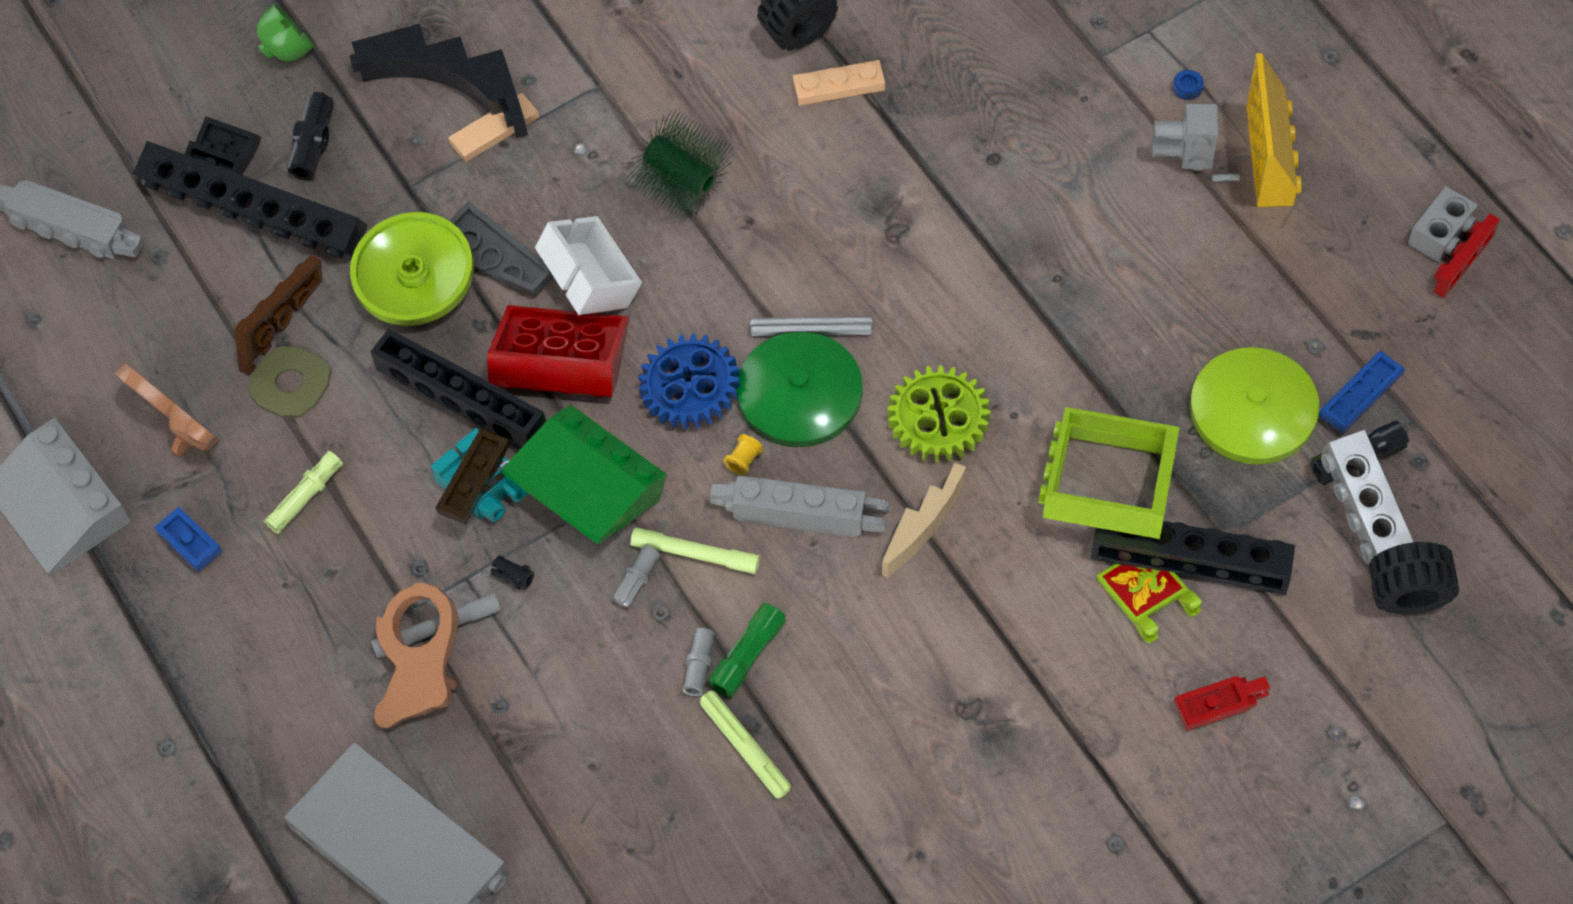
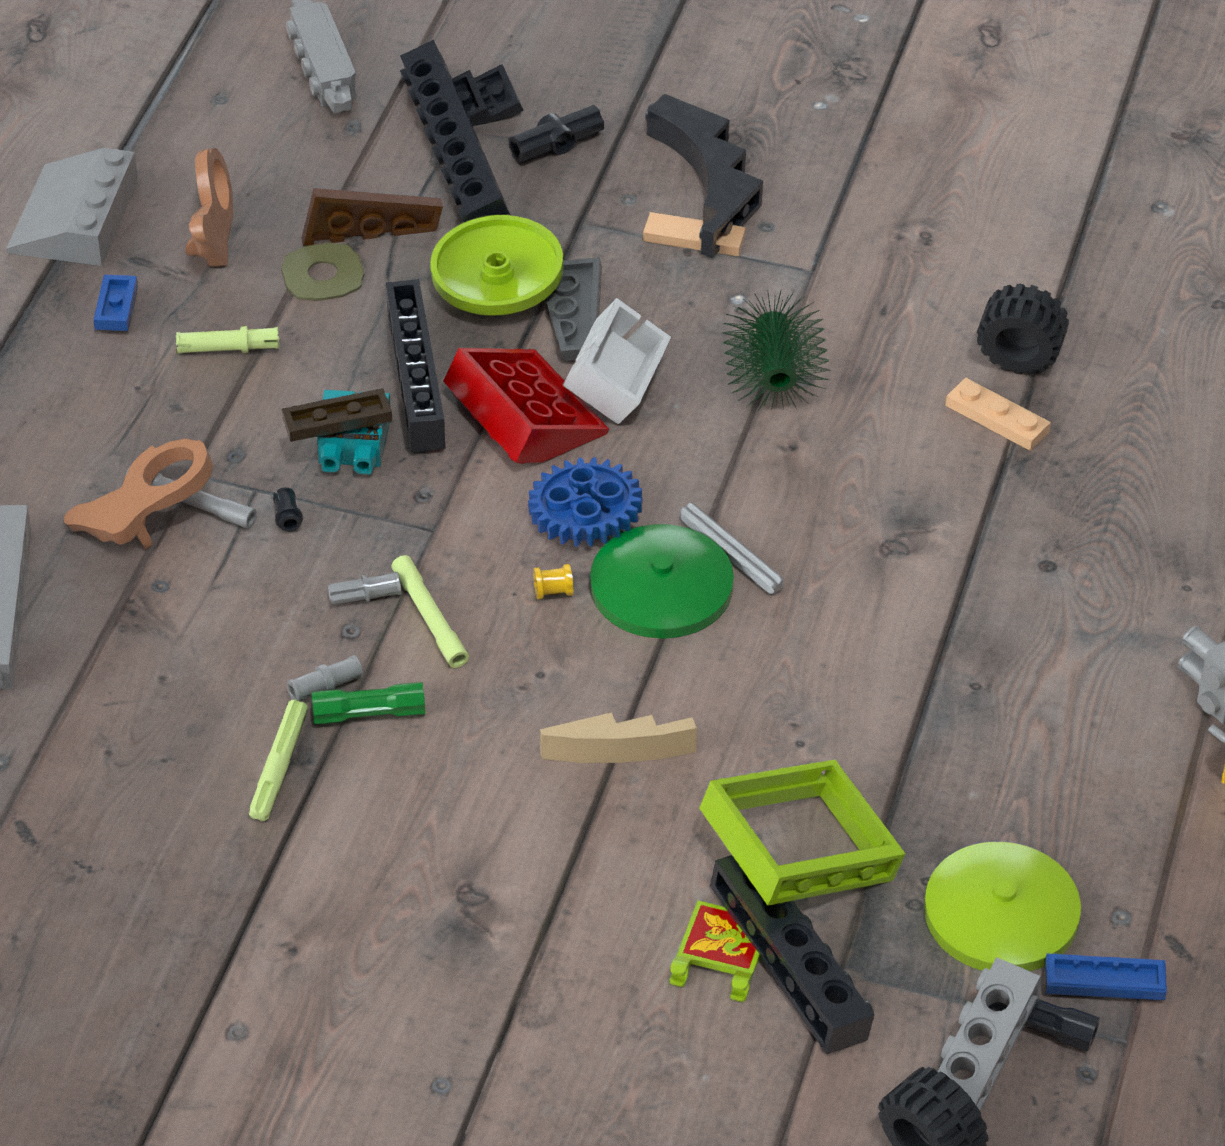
camera: 45 degrees right, 15 degrees down
(281, 36) = (626, 55): bright green cylinder -> none
(586, 474) = (417, 488): green slope -> none
(800, 506) = (541, 647): light grey hinge -> none
(909, 418) = (737, 684): lime gear -> none
(1220, 700) = (661, 1068): red hinge -> none

